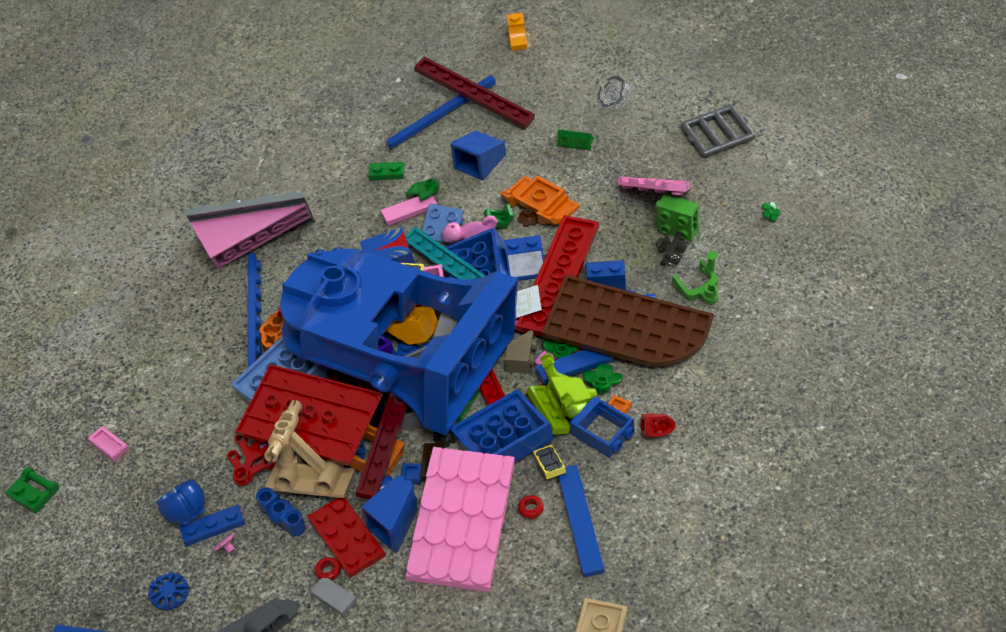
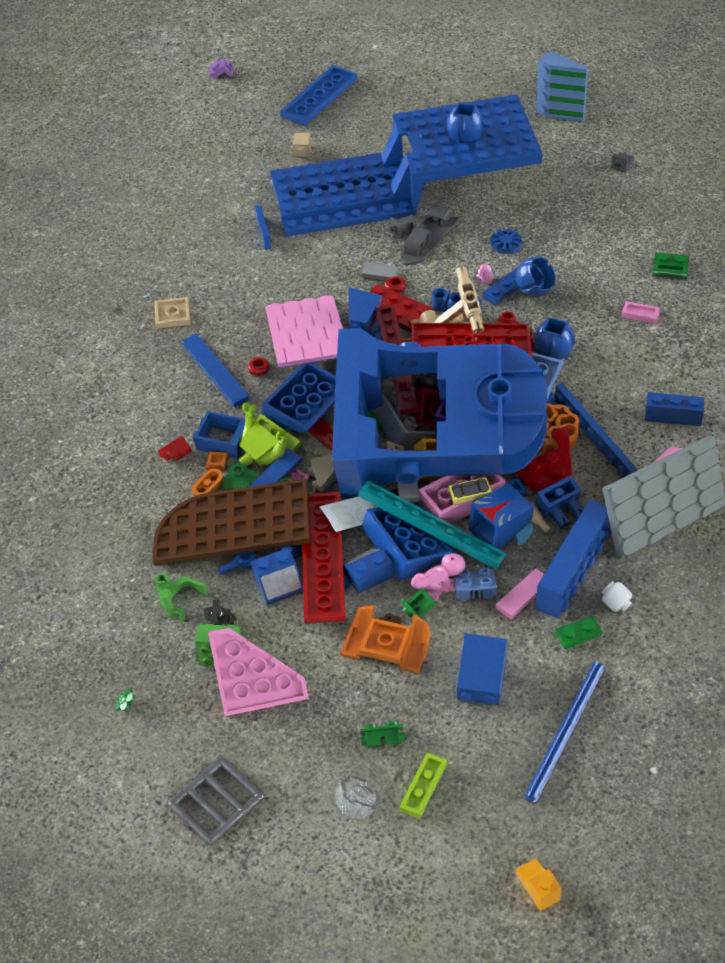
camera: 155 degrees right, 0 degrees up
(169, 319) = (674, 409): none -> blue brick
(219, 435) = (554, 338): none -> blue piece
(341, 181) = (617, 597): none -> white head
(353, 208) = (573, 560): none -> blue brick
(424, 188) = (523, 614): green plate -> none
(474, 92) = (536, 752): dark red plate -> none
(549, 462) = (254, 393): tile -> none
(562, 101) = (423, 785): none -> lime plate
(635, 380) = (206, 483): none -> orange plate

